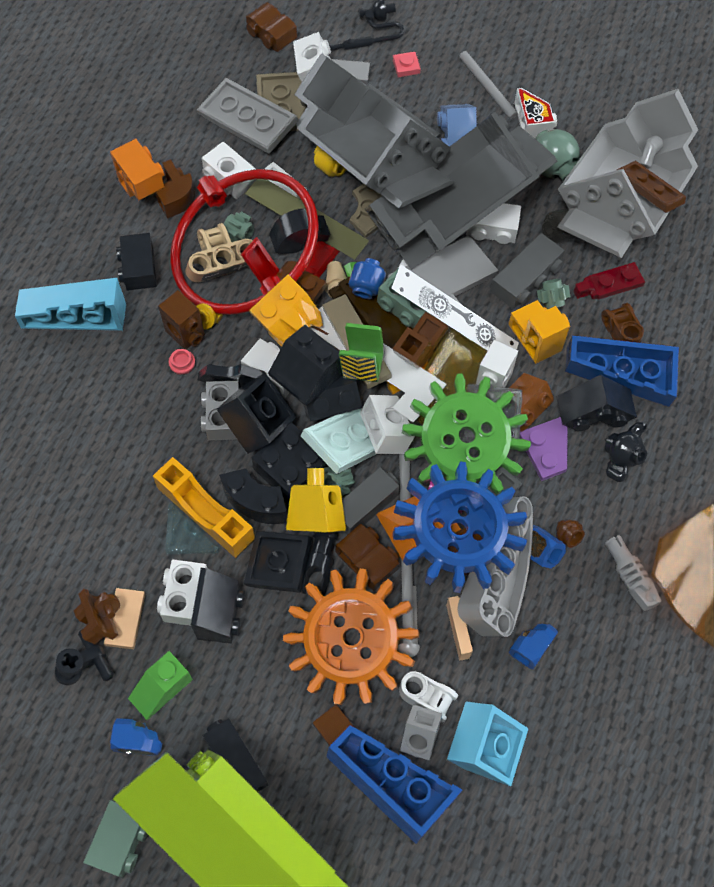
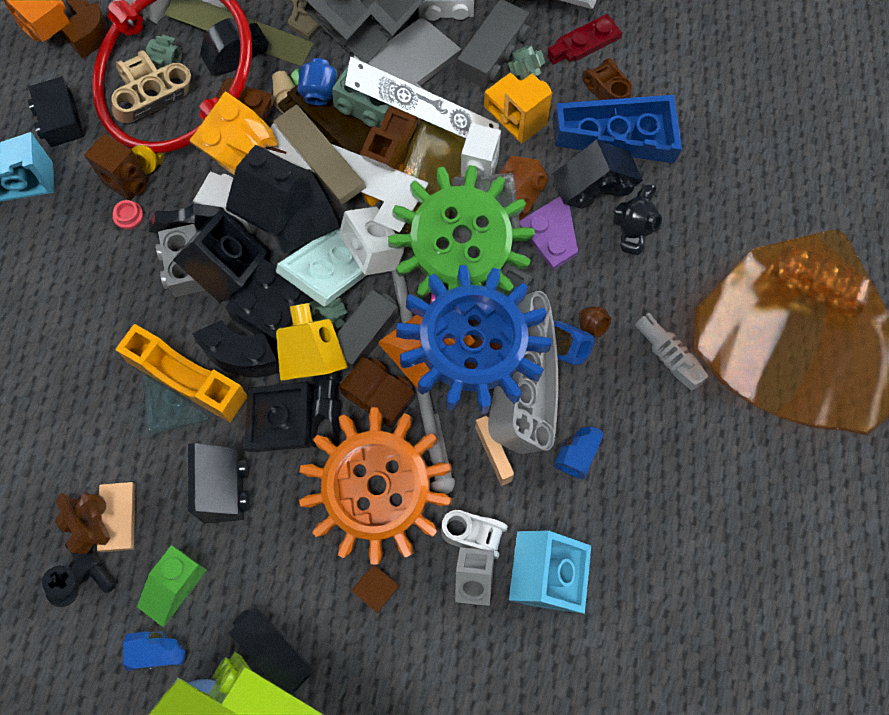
camera: 10 degrees left, 5 degrees up
(179, 592) = (169, 476): white brick -> none
(259, 260) = (192, 84): red tile -> none
(321, 258) = (262, 70): red tile -> none
(364, 354) = (331, 164): bright green piece -> none
(394, 784) = (462, 644): blue wedge -> none

